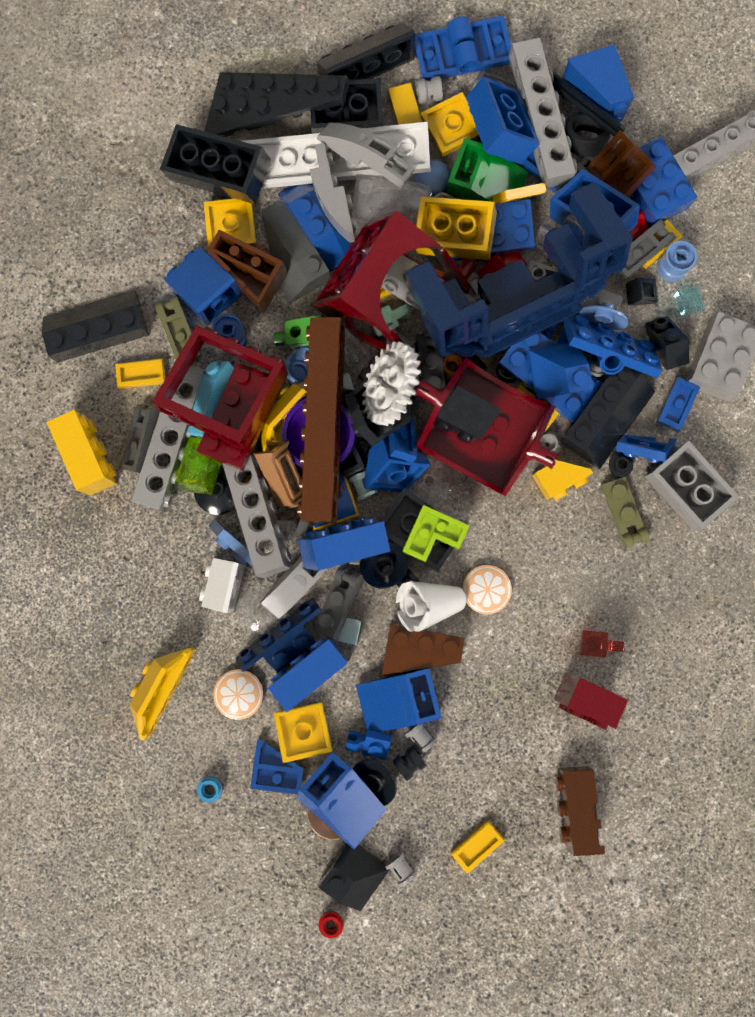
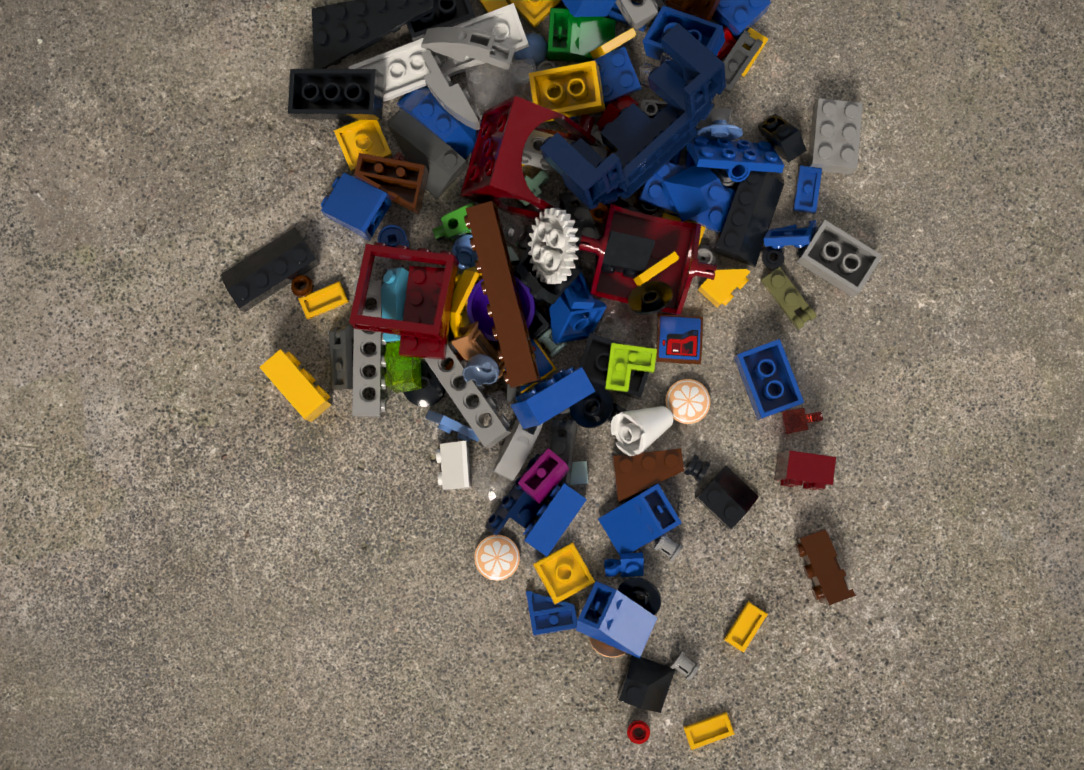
camera: 20 degrees left, 0 degrees up
(120, 347) = (299, 281): none -> reddish brown plate
(157, 688) = (424, 573): yellow wedge -> none
(175, 325) = (343, 250): olive plate -> none
(202, 792) = (494, 654): dark azure plate -> none
(276, 492) = (481, 370): none -> sand blue hair
(309, 624) = (543, 475): none -> magenta brick
(405, 945) = (708, 730): none -> yellow tile
(409, 763) = (665, 571): black wheel -> none
(475, 663) = (697, 468): none -> black wheel
(478, 469) = (650, 297): none -> black dish
(494, 440) = (657, 268): none -> yellow tile
(497, 521) = (679, 339): none -> slope
(499, 704) = (727, 497): none -> black slope
(579, 592) = (768, 379): none -> blue brick
(641, 291) = (746, 98): black slope -> none
(676, 261) = (769, 63): medium blue wheel -> none
(689, 301) = (791, 95): clear light blue slope -> none

